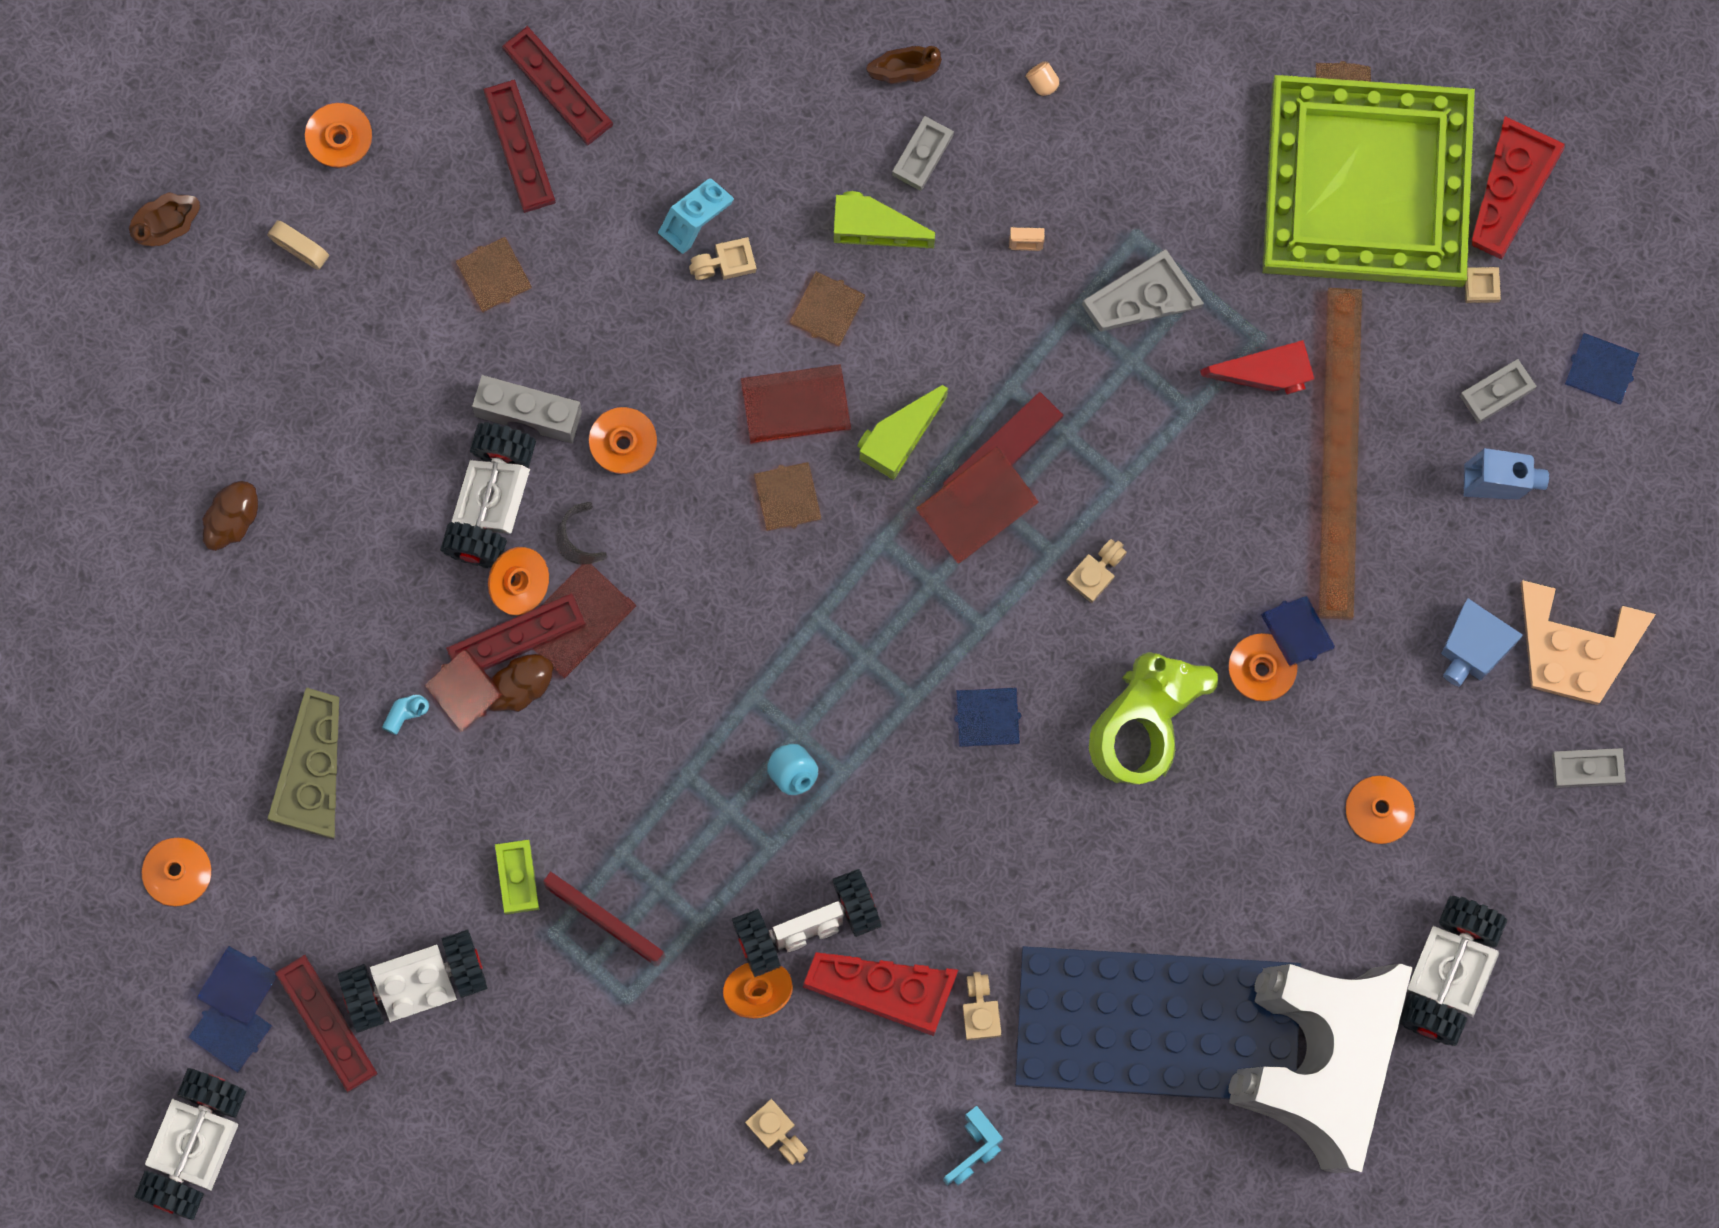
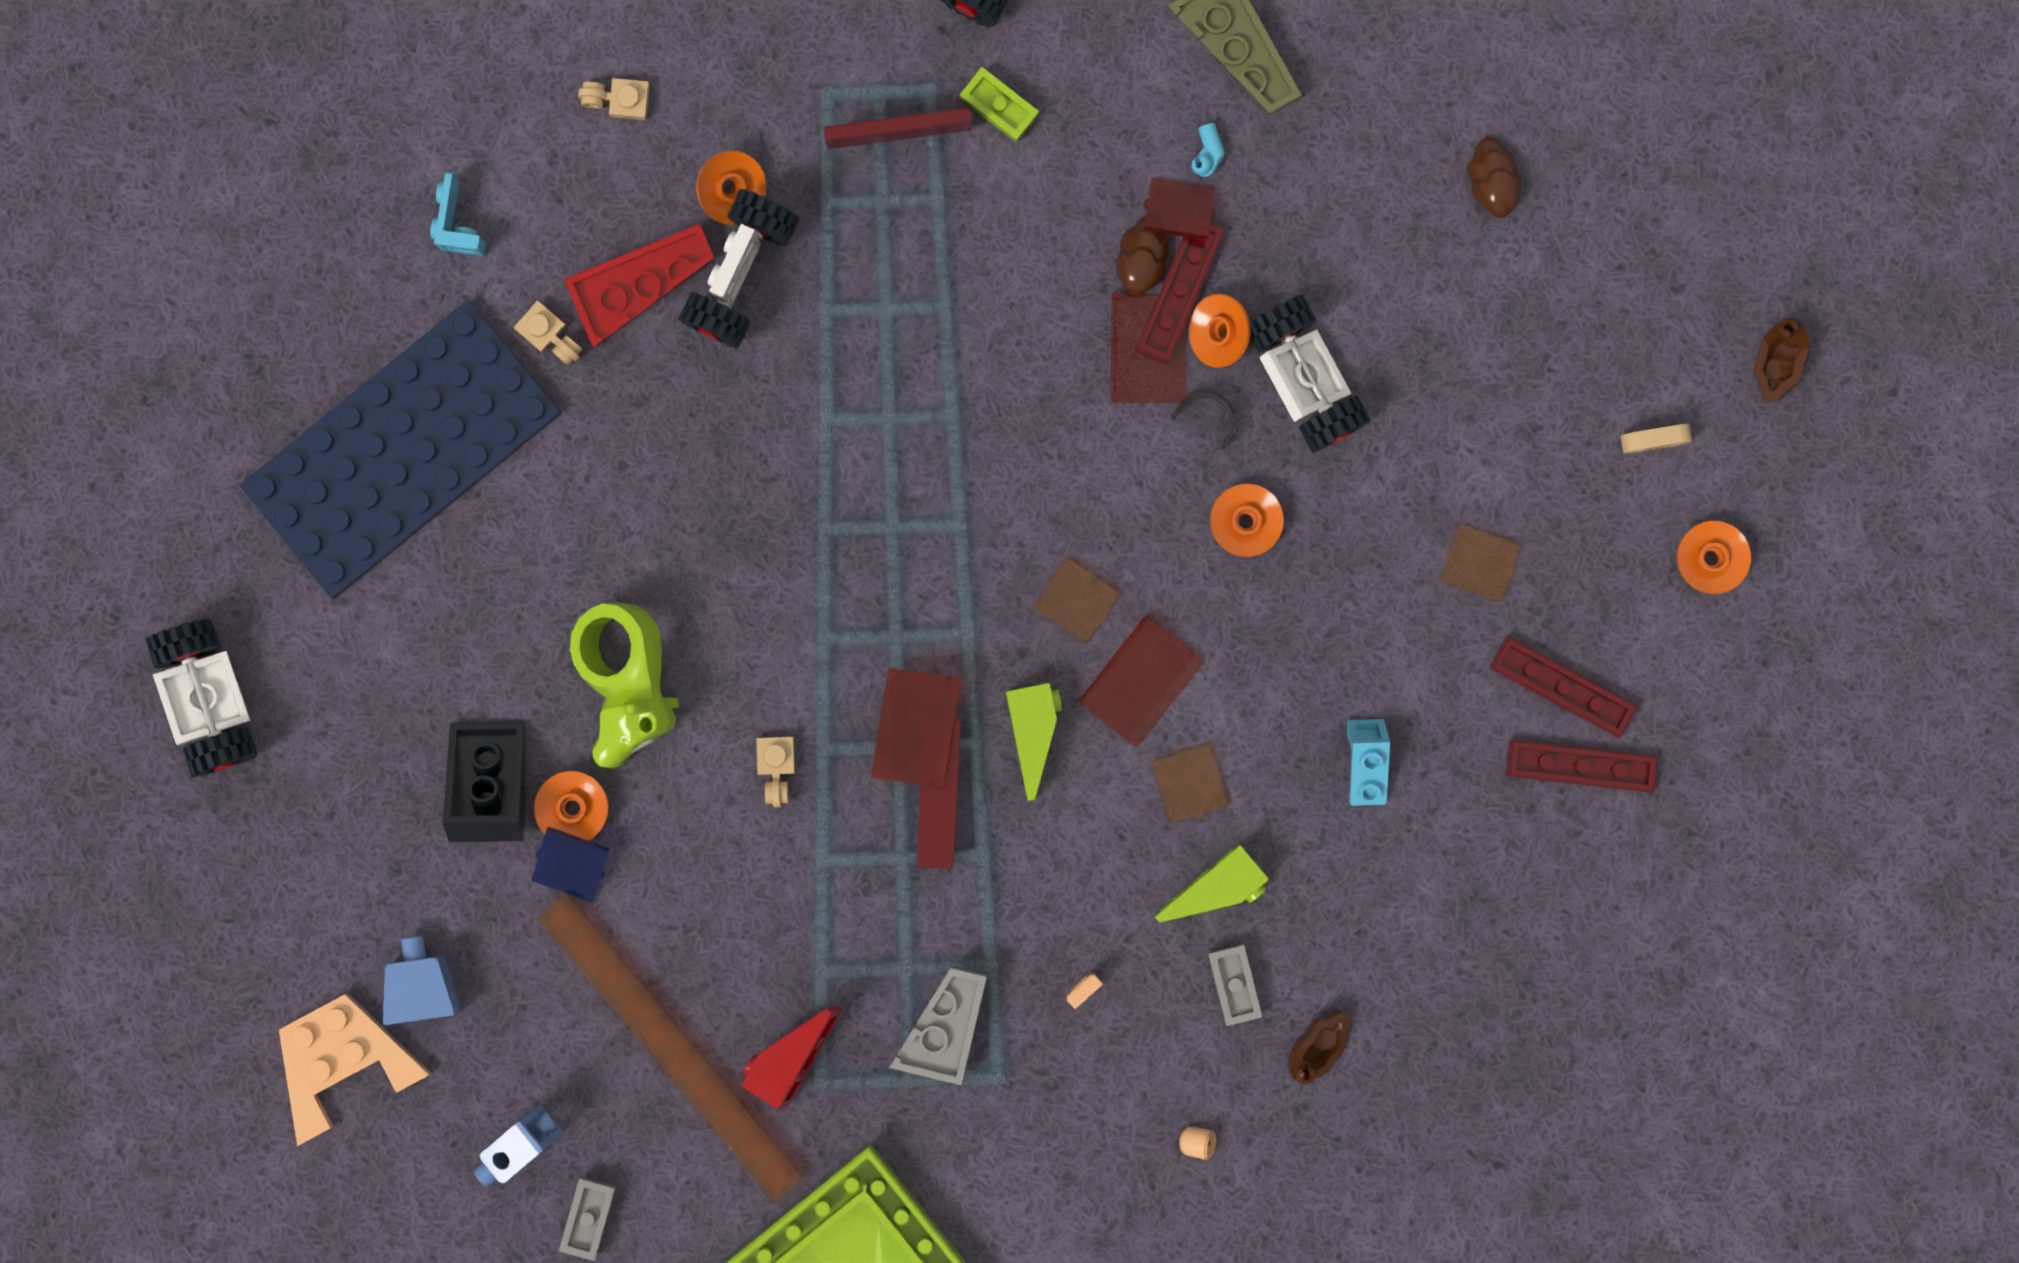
camera: 135 degrees right, 10 degrees up
(510, 402) = (1346, 473): light grey arch -> none
(733, 258) = (1301, 751): tan plate -> none
(792, 769) = (861, 377): medium azure head -> none
(987, 717) = (754, 569): clear blue piece -> none
(1305, 738) = (485, 782): none -> black slope
(1349, 1047) = (216, 540): piece -> none
(1376, 826) = (398, 781): orange dish -> none
(1588, 768) = (241, 967): light grey plate -> none

